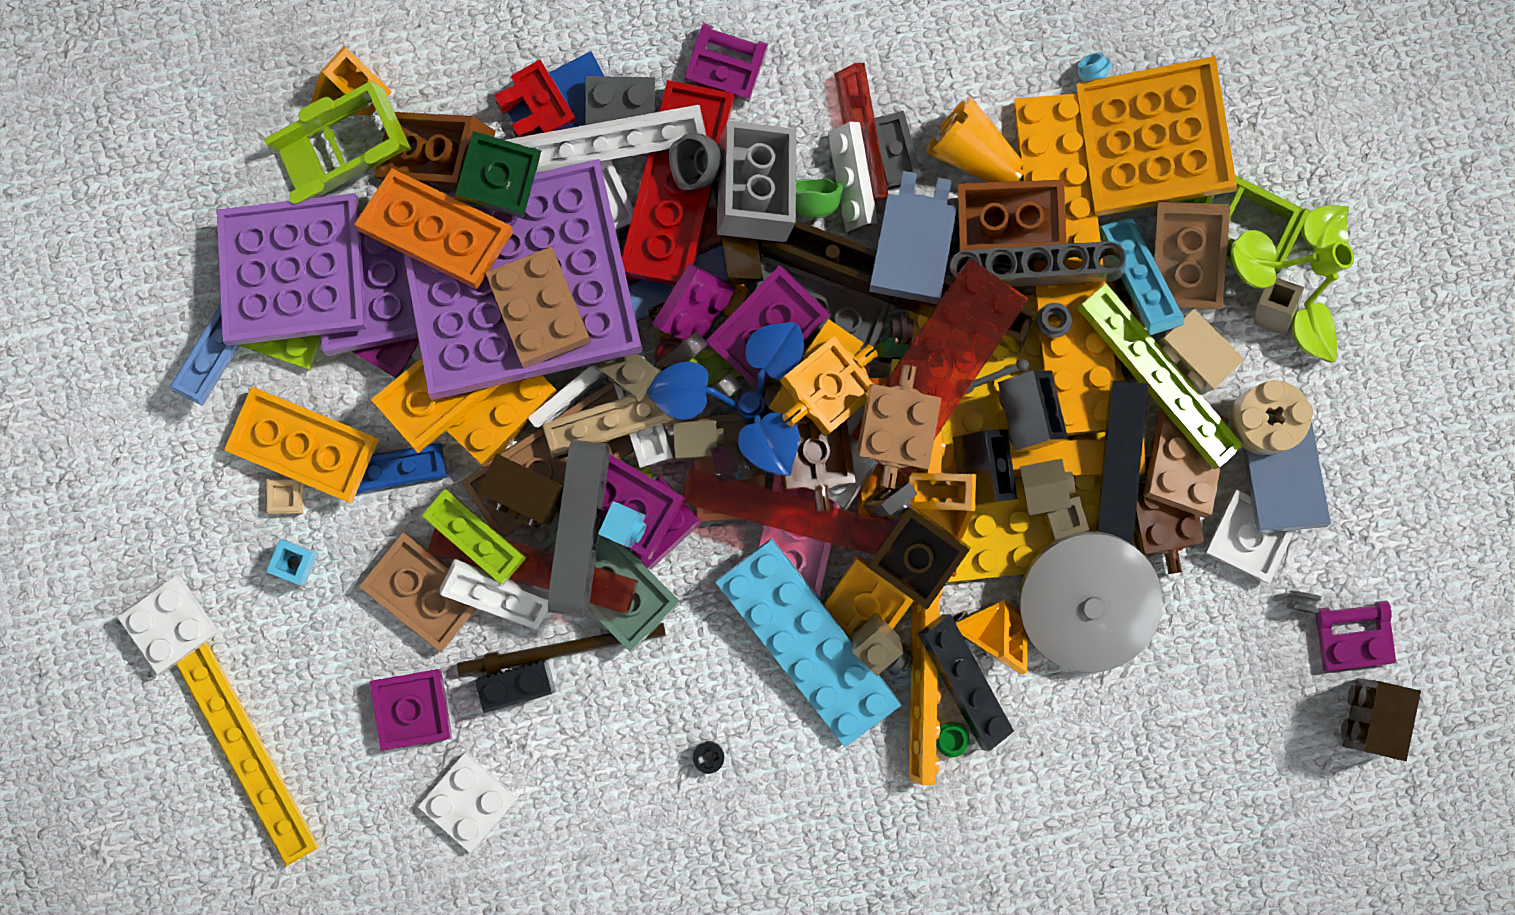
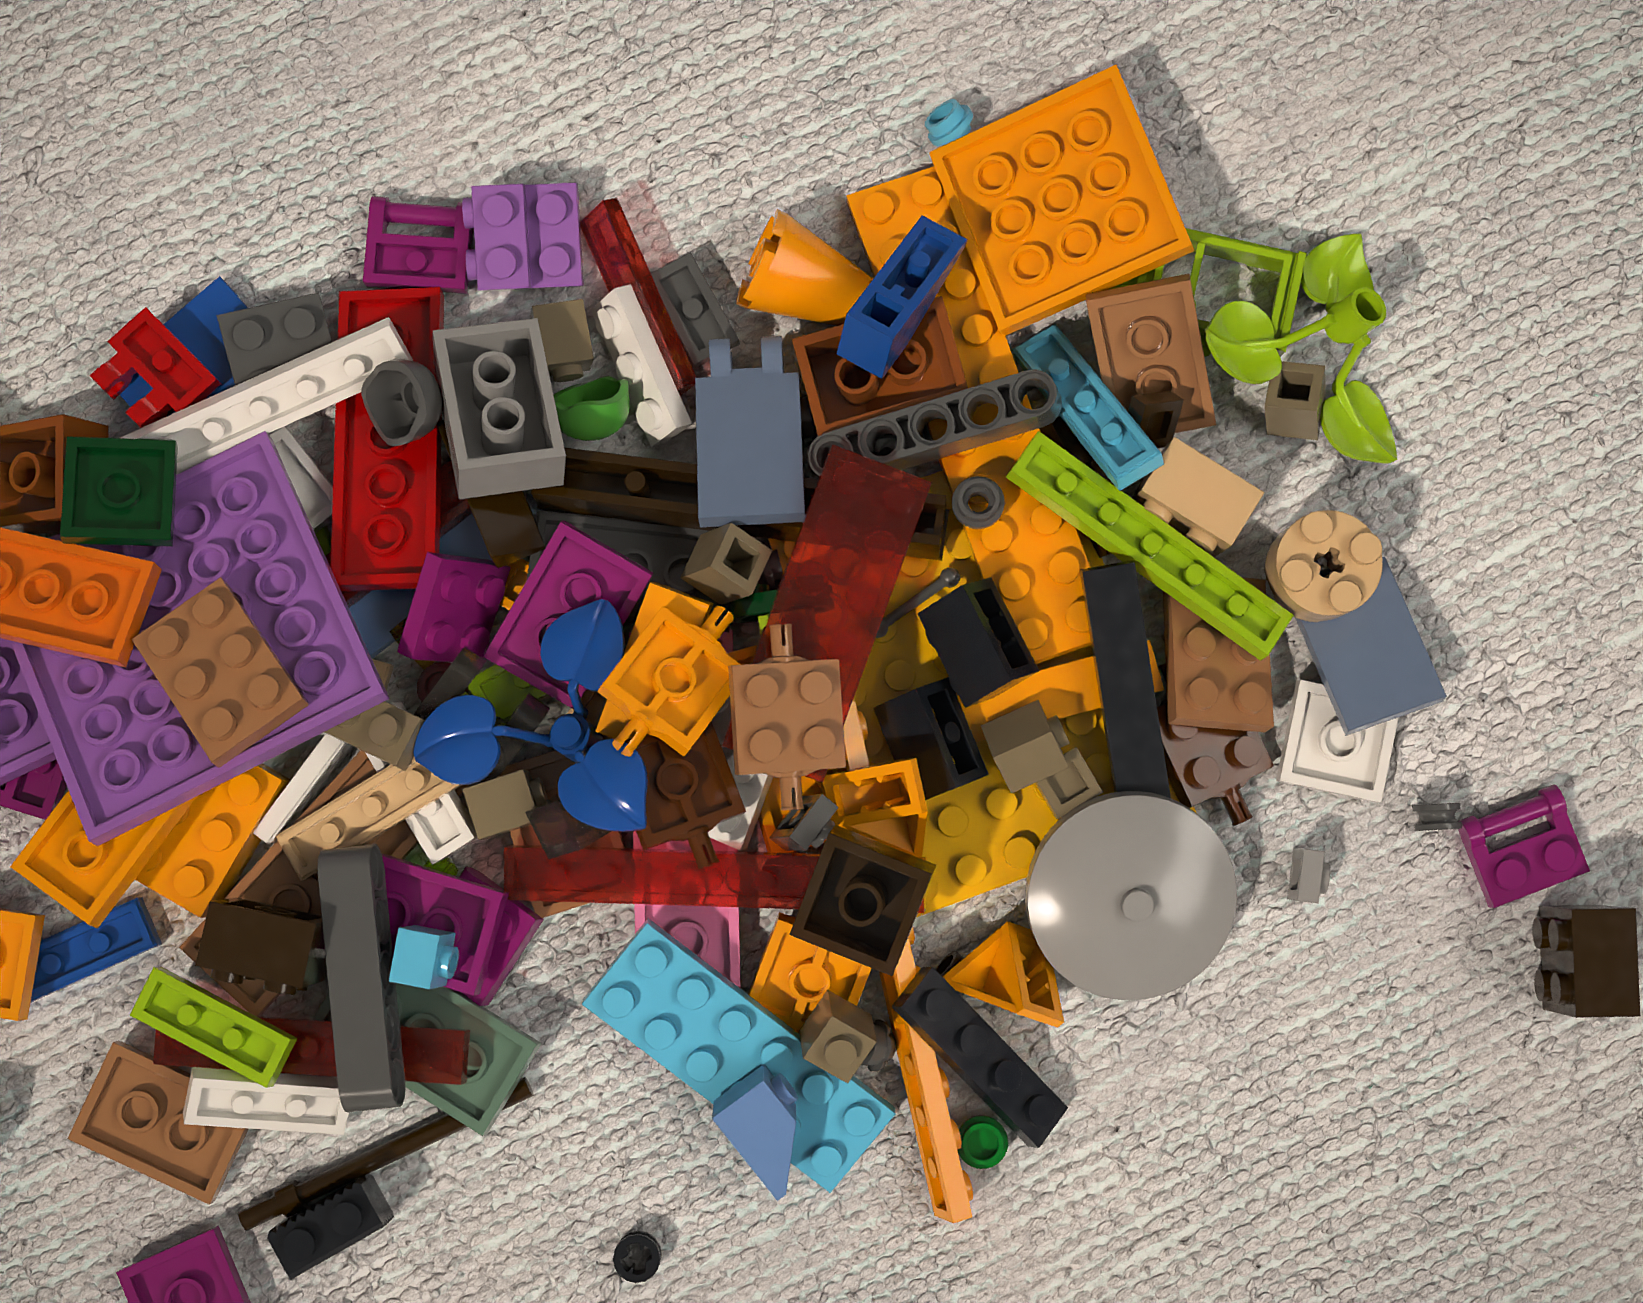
camera: 15 degrees left, 0 degrees up
(797, 73) = (524, 236): none -> medium lavender plate
(809, 146) = (565, 338): none -> dark tan brick
(814, 689) = (761, 1125): none -> medium blue slope
(879, 319) = (726, 564): none -> dark tan brick
(1036, 173) = (899, 297): none -> blue slope
(1185, 292) = (1157, 415): none -> dark brown plate
(1210, 619) = (1308, 875): none -> light grey plate

